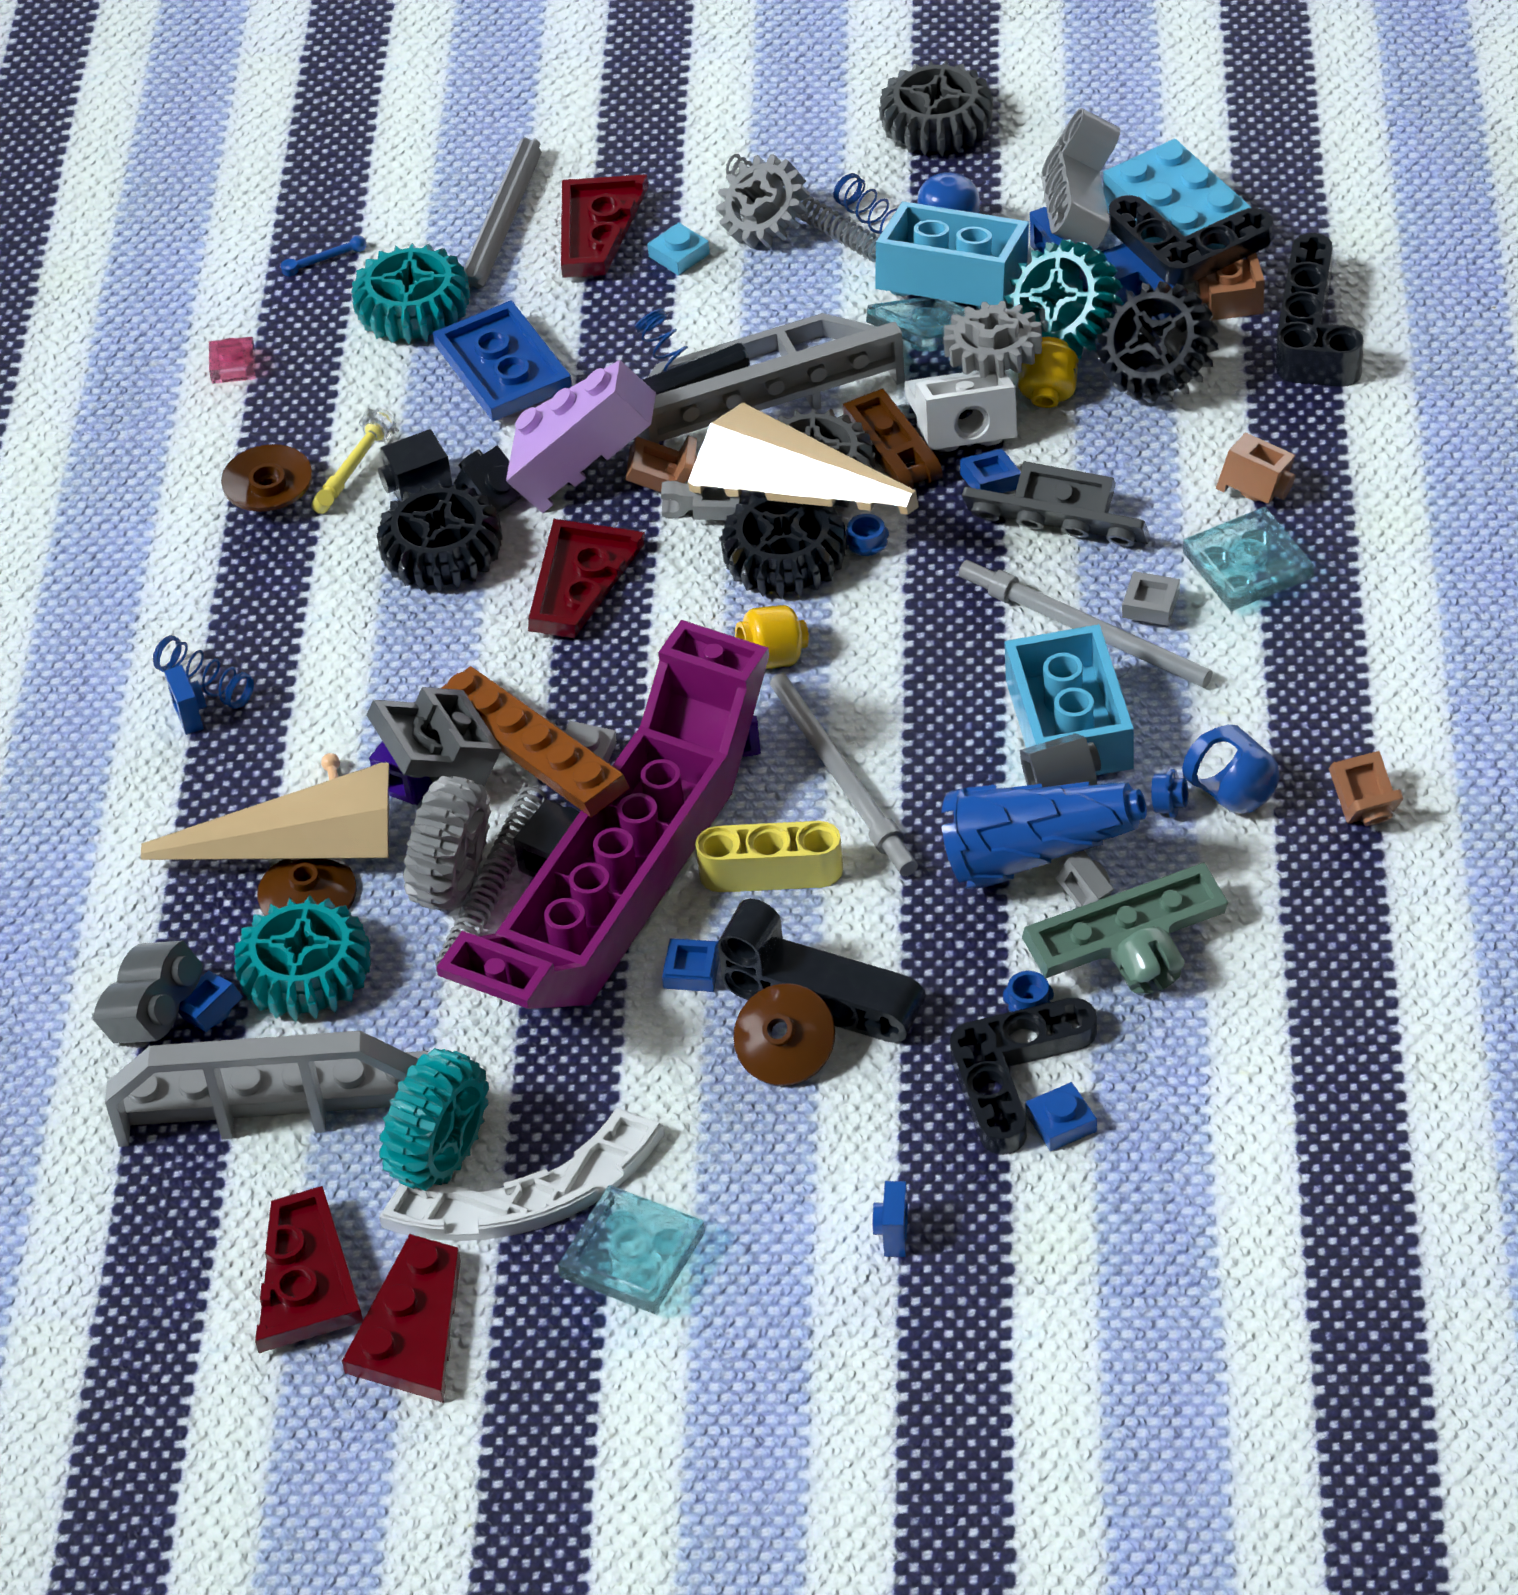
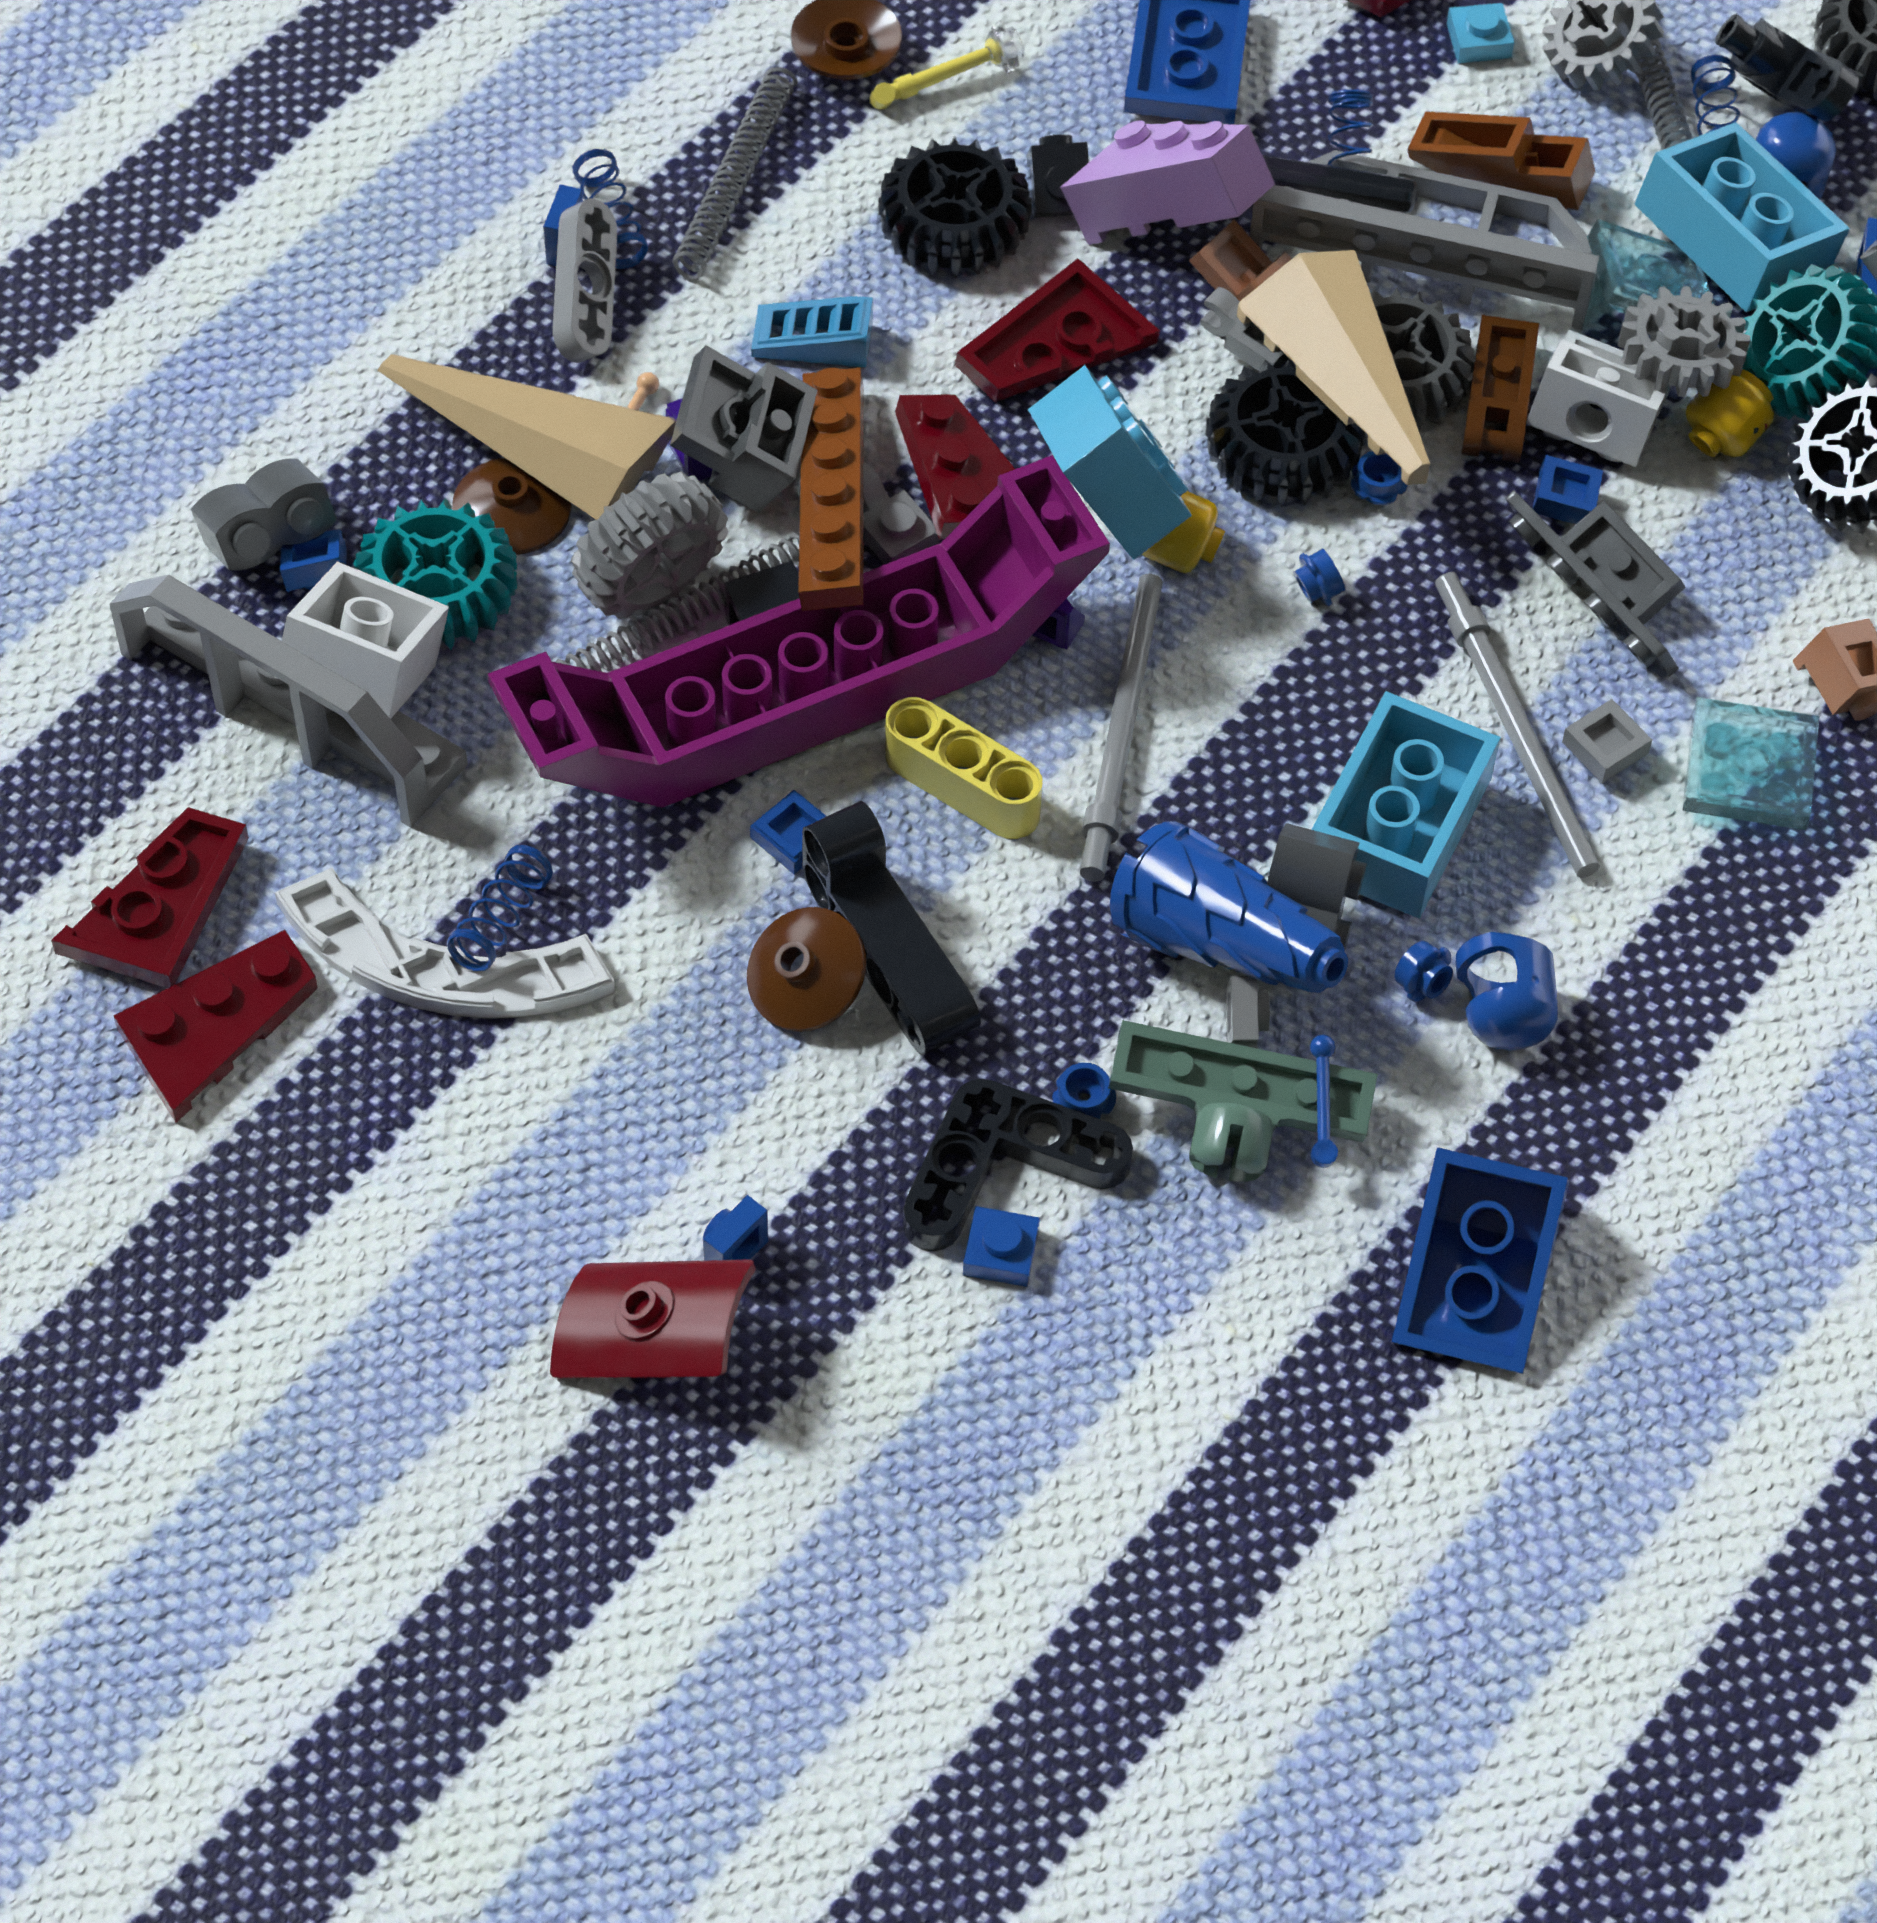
camera: 30 degrees right, 10 degrees up
(234, 720) = (583, 319): none -> light grey beam
(254, 594) = (766, 112): none -> light grey piece
(301, 1004) = (369, 633): none -> white brick
(414, 463) = (997, 114): black brick -> none
(434, 1119) = (388, 828): teal gear -> none
(436, 643) = (845, 343): none -> dark azure slope
(538, 1153) = (520, 878): none -> blue piece
(589, 686) = (950, 456): none -> dark red wing
(631, 1249) = (468, 1091): clear light blue plate -> none
(710, 598) = (1112, 460): none -> medium azure brick
(763, 306) = (1504, 154): none -> dark orange slope
(885, 613) = (1319, 577): none -> blue plate
(890, 1297) = (649, 1319): none -> dark red shield
(906, 159) = (1787, 68): none -> black piece
(1213, 926) = (1324, 1151): none -> blue hinge
(1360, 927) = (1480, 1260): none -> blue slope
(1365, 789) = (1631, 1106): nougat bracket -> none

